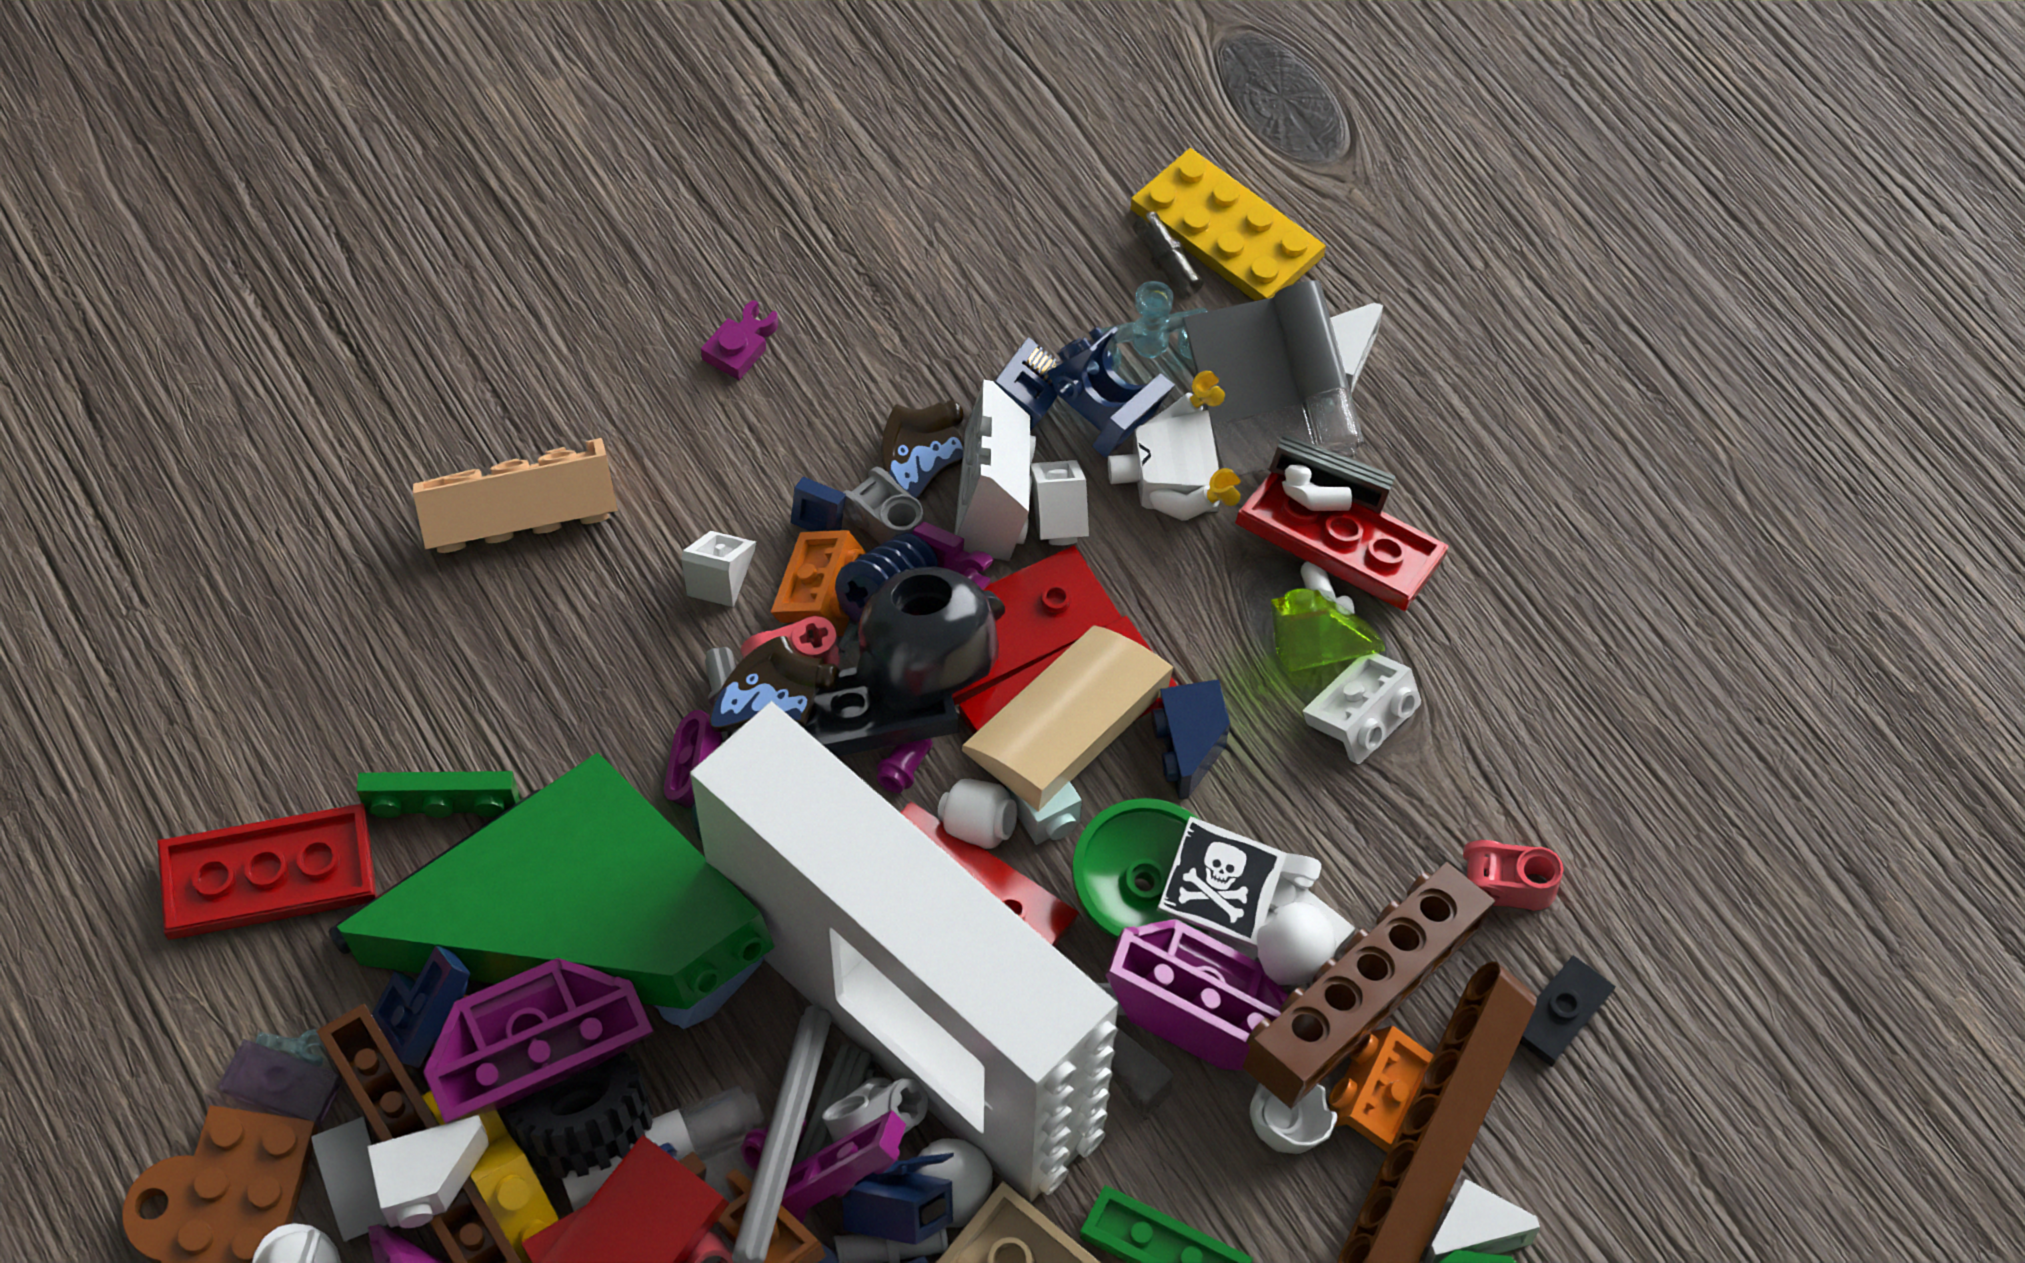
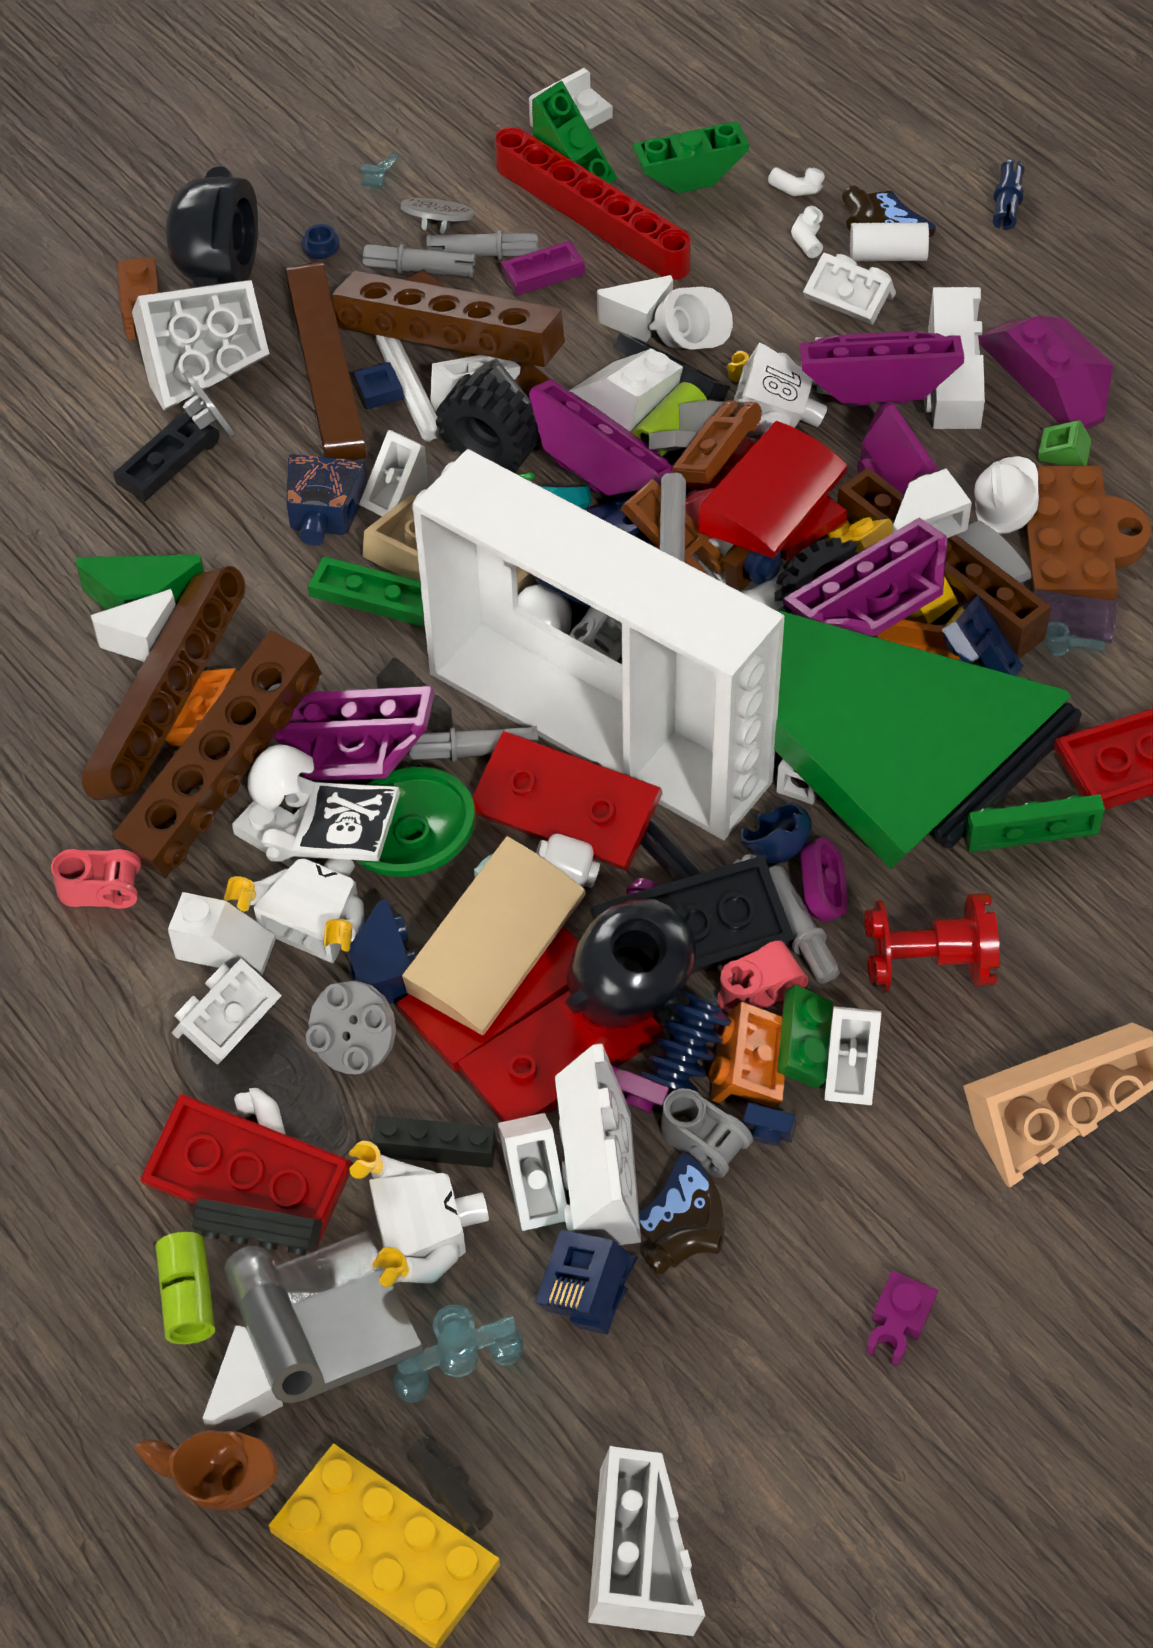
camera: 175 degrees right, 5 degrees down
(584, 644) = (950, 942): none -> red piece
(759, 592) = (805, 1037): none -> green plate
(769, 674) = (765, 918): dark brown arm -> none
(1016, 173) = (638, 1553): none -> white wedge
(1096, 392) = (511, 1275): dark blue tile -> none
(1153, 545) = (435, 1141): none -> pearl dark grey piece
(1229, 651) = (334, 1017): none -> light grey plate
(1269, 797) = (305, 905): none -> torso
(1314, 497) = (277, 1188): white arm -> none
(1319, 631) = (260, 1060): clear neon green slope -> none
(1368, 274) = (214, 1467): none -> dark orange hair
(1369, 784) = (218, 933): none -> white slope
(1401, 435) = (185, 1288): none -> lime pin
(1565, 1009) = (54, 795): black plate -> none

